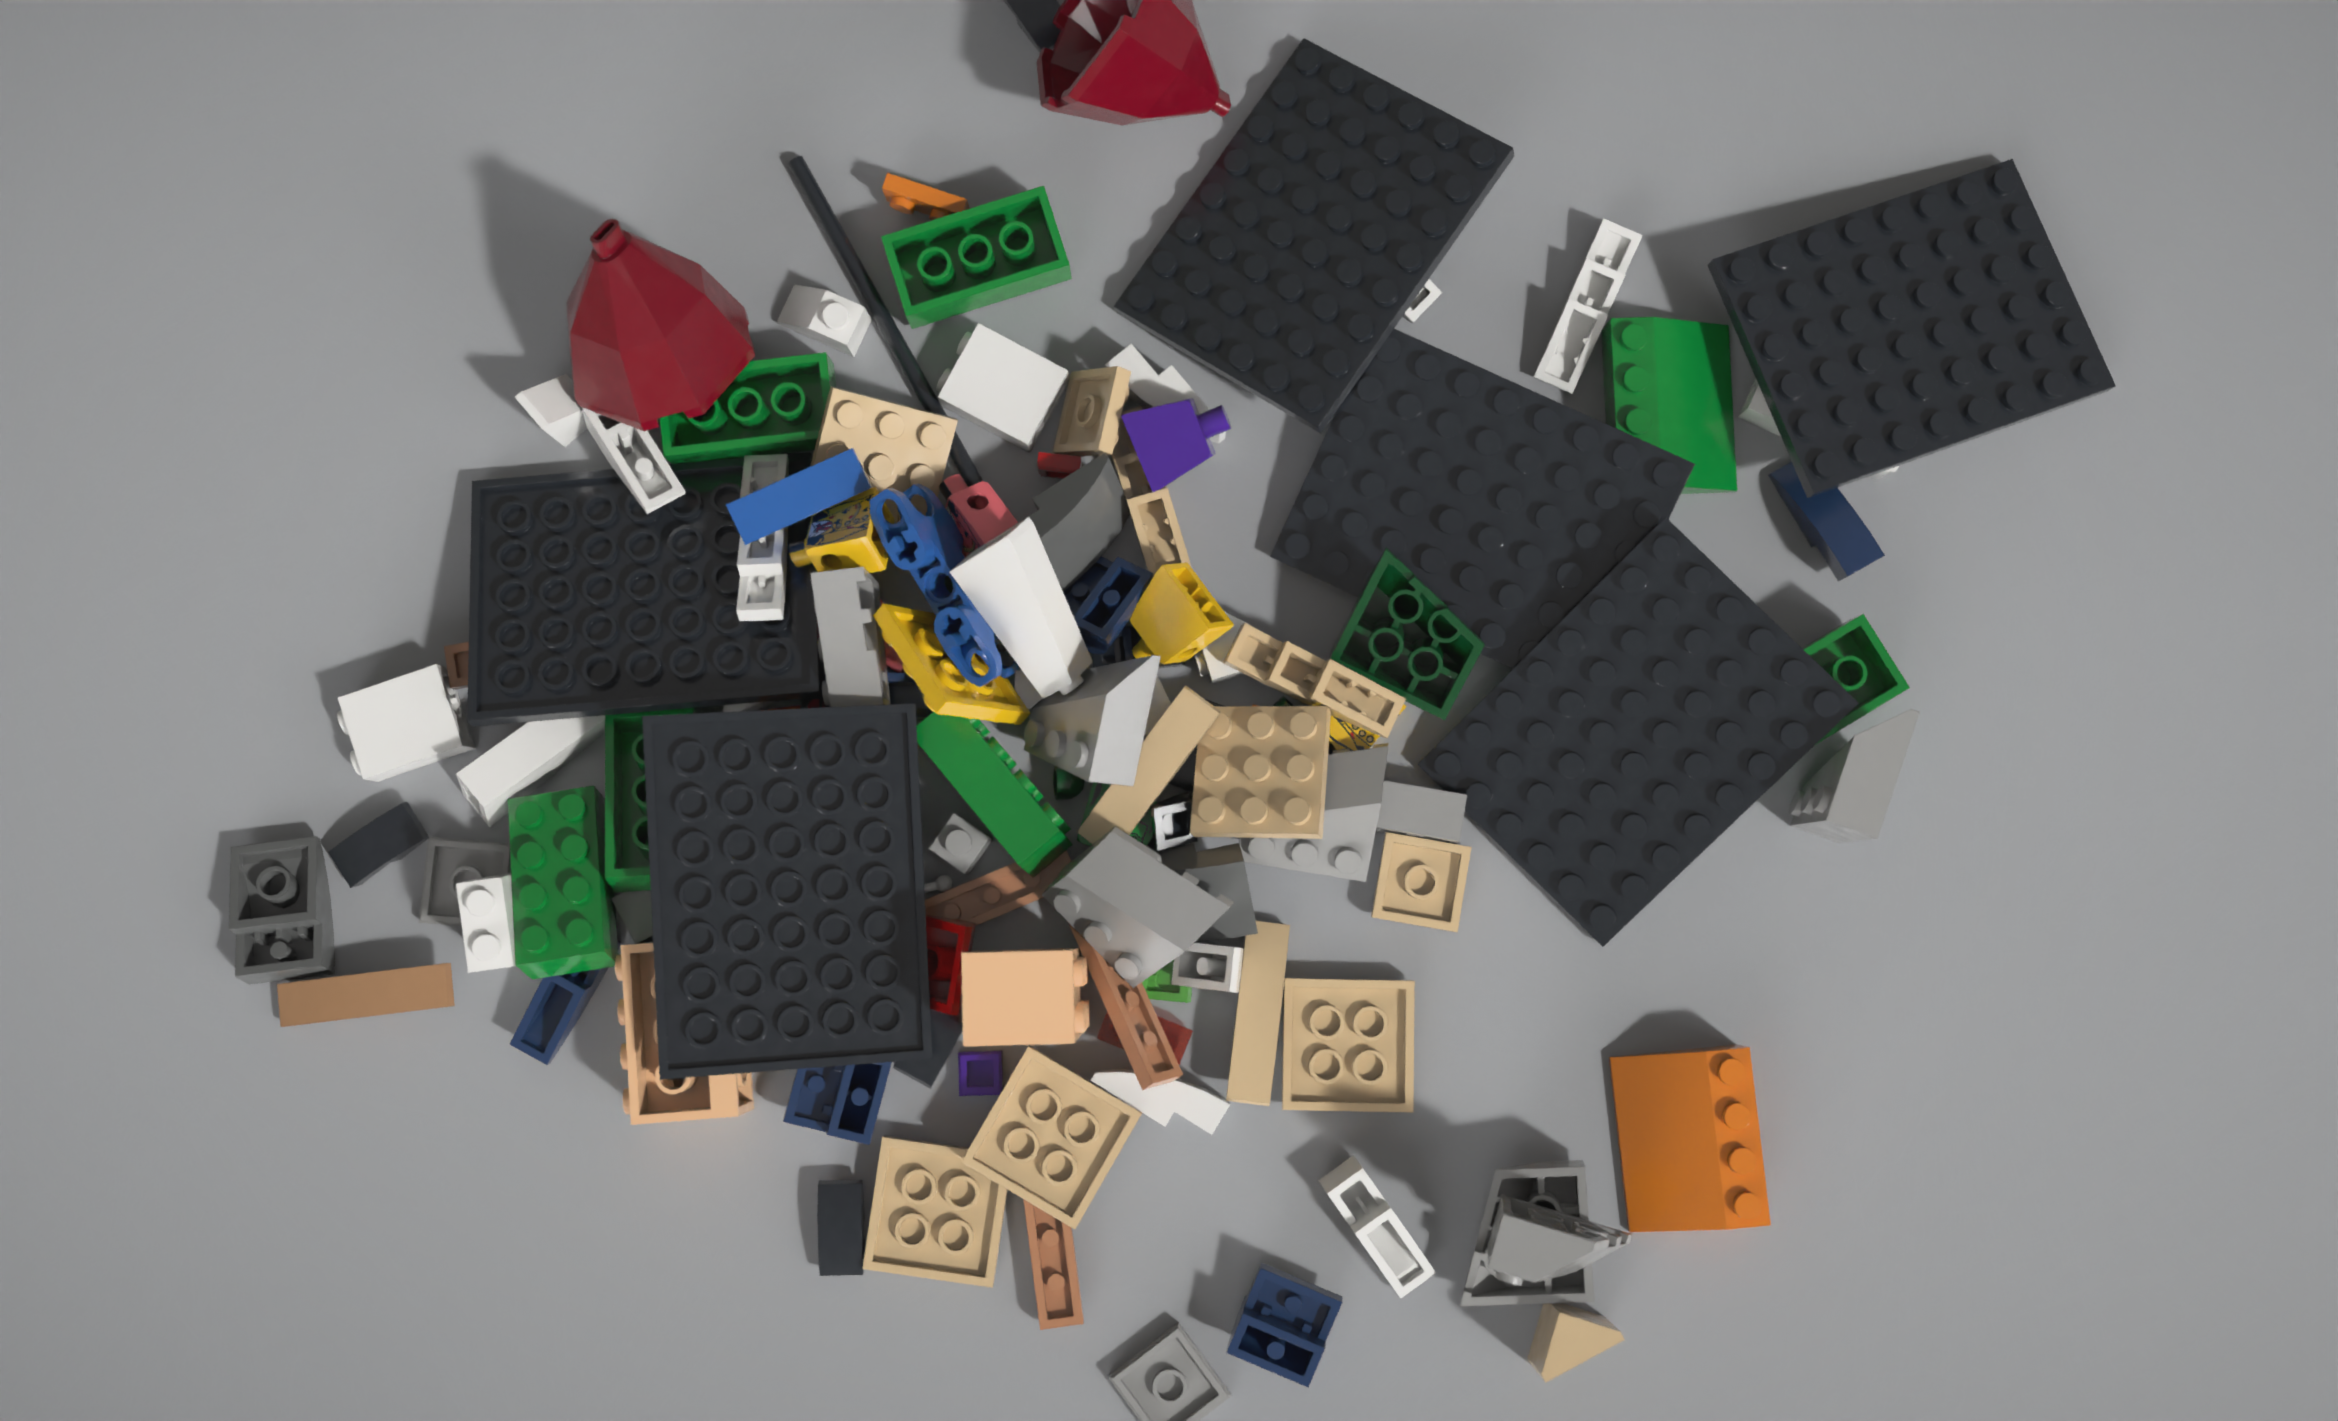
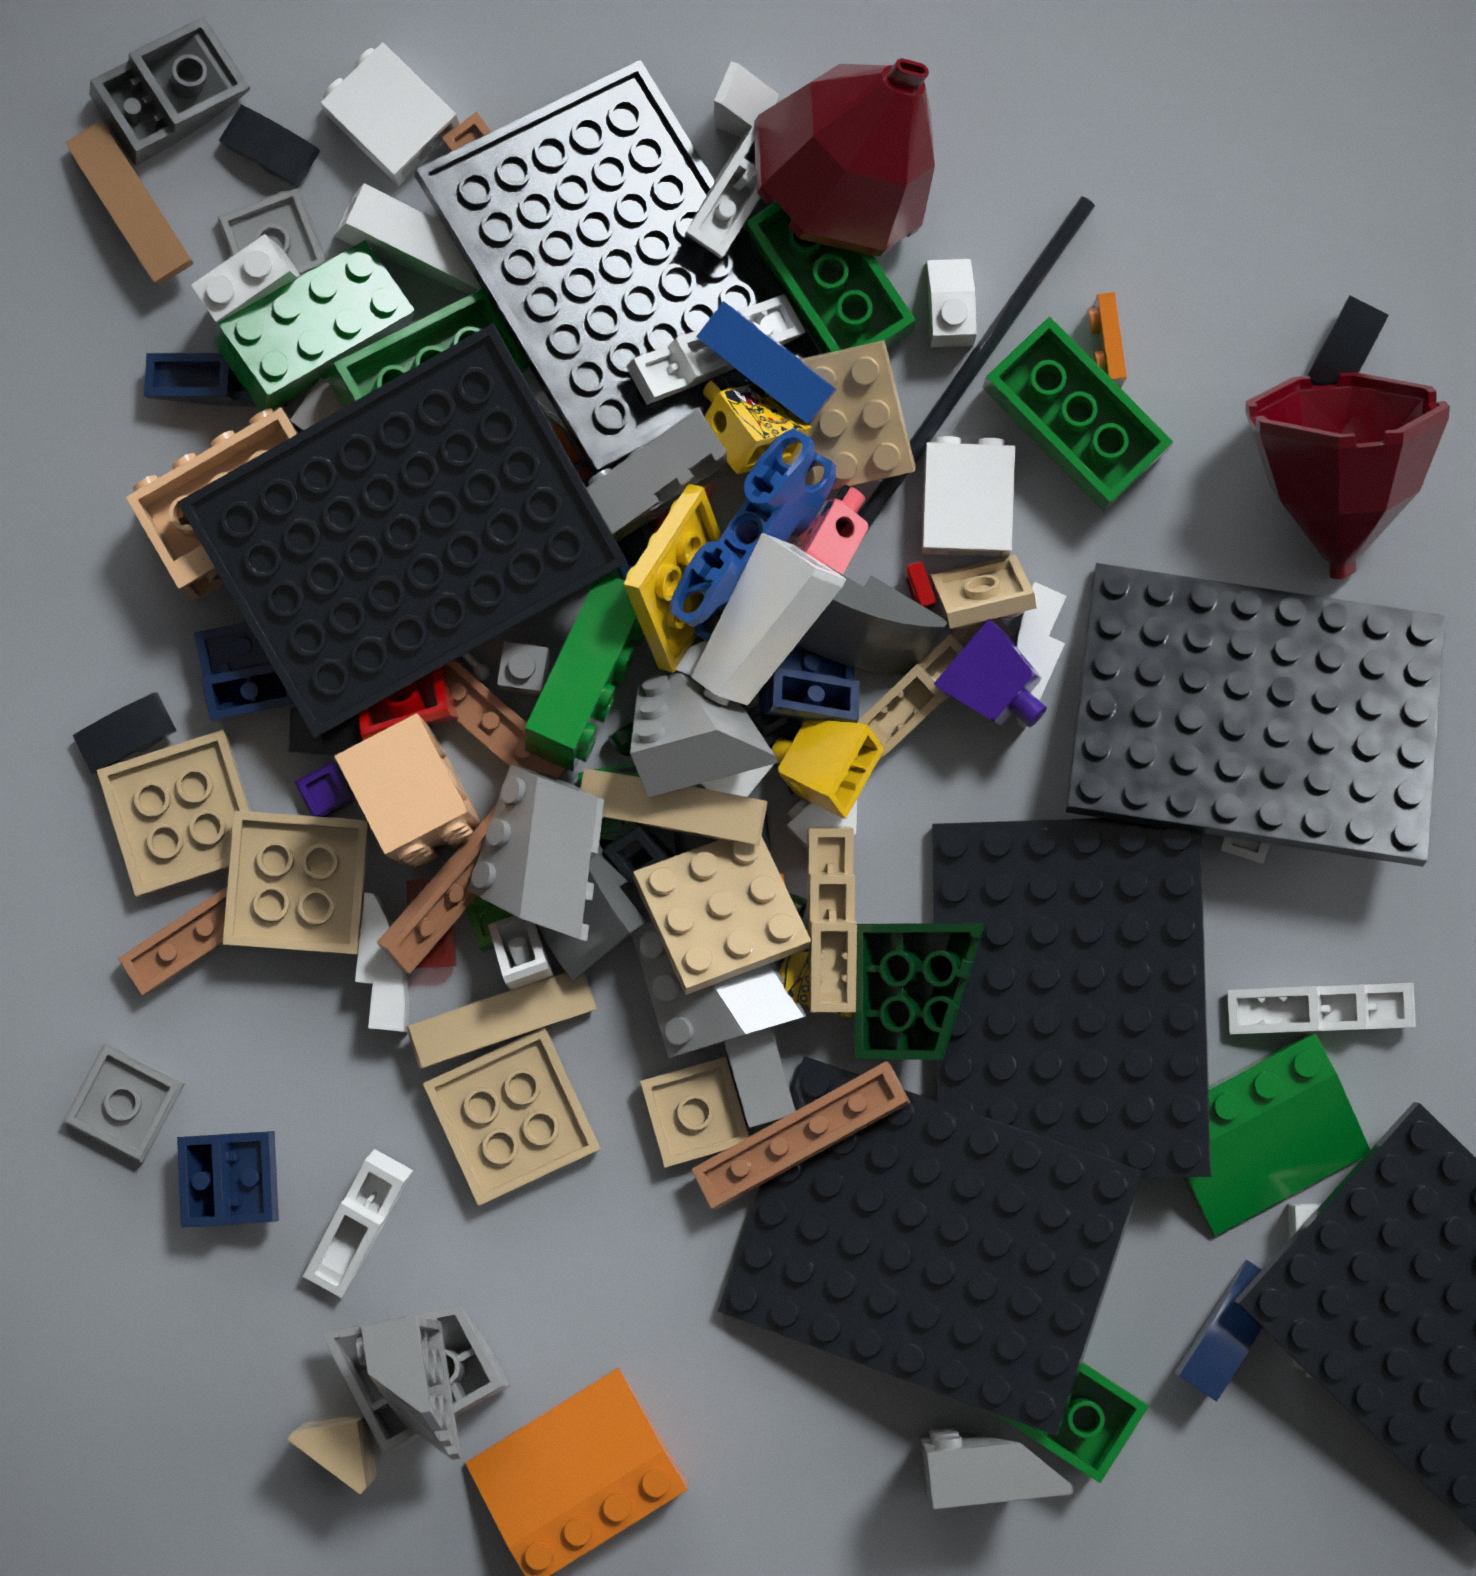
camera: 65 degrees right, 0 degrees up
(1488, 799) = (800, 1135): none -> nougat plate

